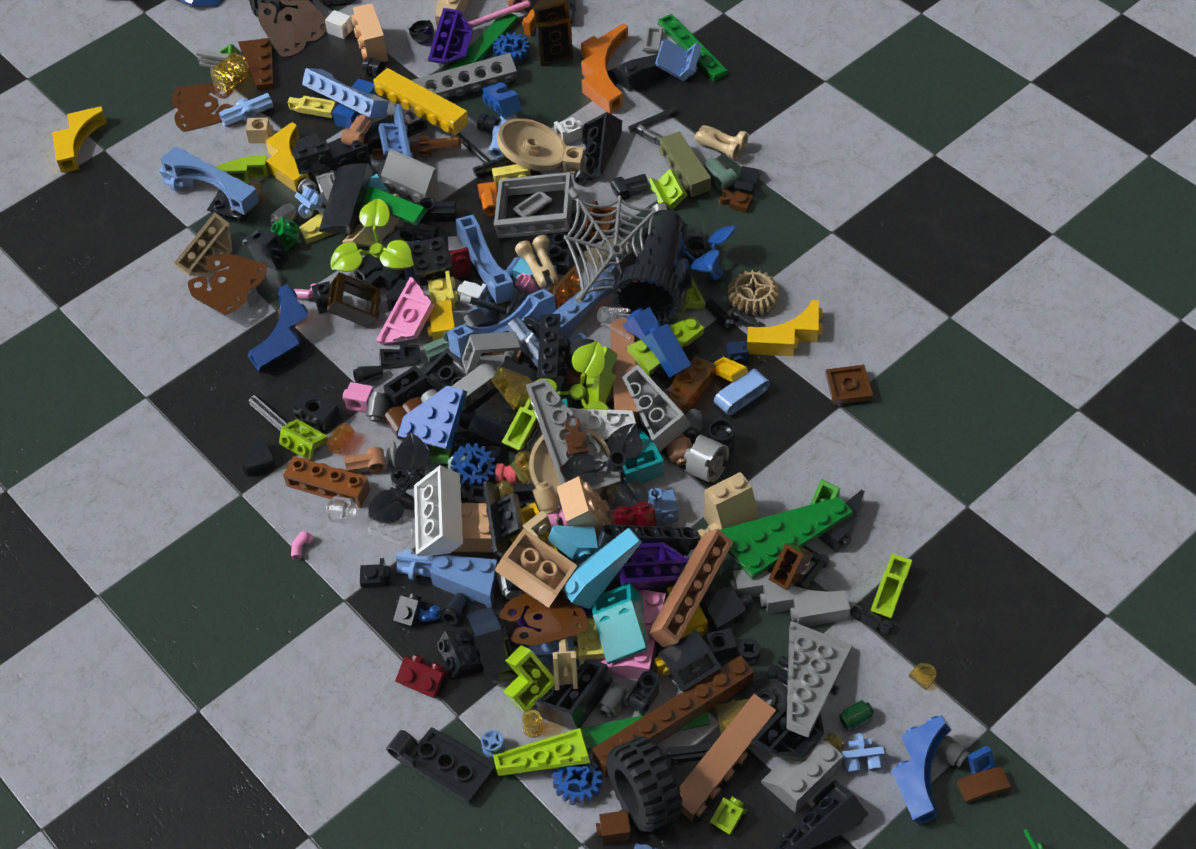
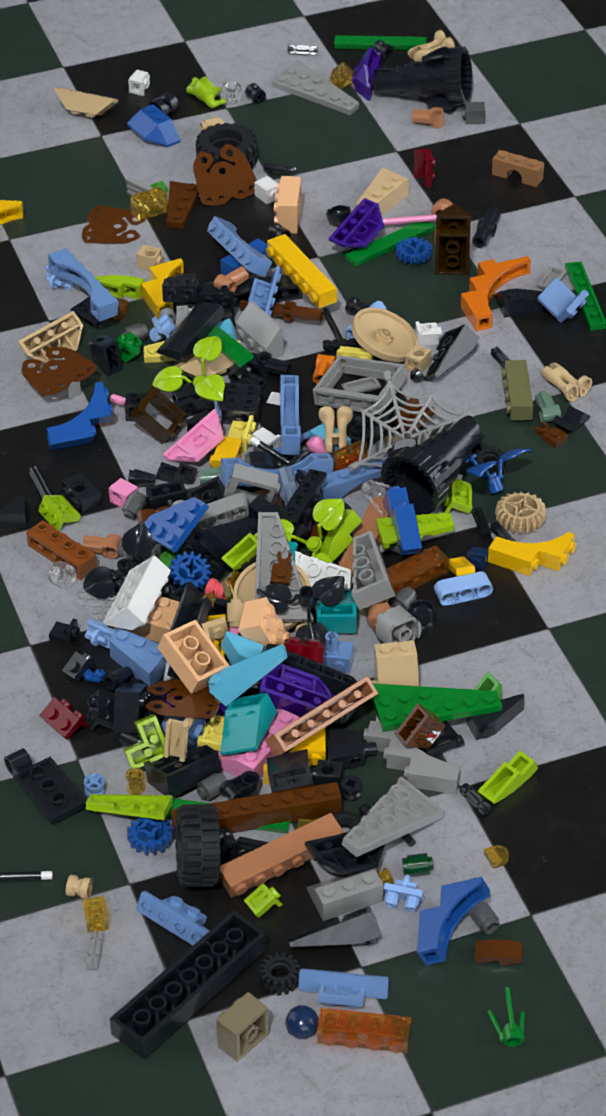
camera: 20 degrees right, 10 degrees down
(246, 109) = (147, 237): light blue piece -> none
(296, 550) = (12, 591): bright pink arm -> none
(312, 106) = (207, 251): light yellow hinge -> none
(340, 438) = (91, 521): clear orange brick -> none
(461, 263) = (268, 412): dark red bracket -> none
(470, 72) = (363, 260): light grey brick -> none
(501, 100) = (377, 289): blue arch -> none
(512, 386) = (248, 512): clear yellow slope -> none
(614, 827) = (161, 877): reddish brown brick -> none
(627, 187) = (451, 394): black piece -> none
(653, 119) = (513, 346): black bar -> none
(668, 189) = (490, 408): lime bracket -> none
(849, 384) = (565, 611): reddish brown plate -> none
(981, 760) = (506, 930): blue tile -> none

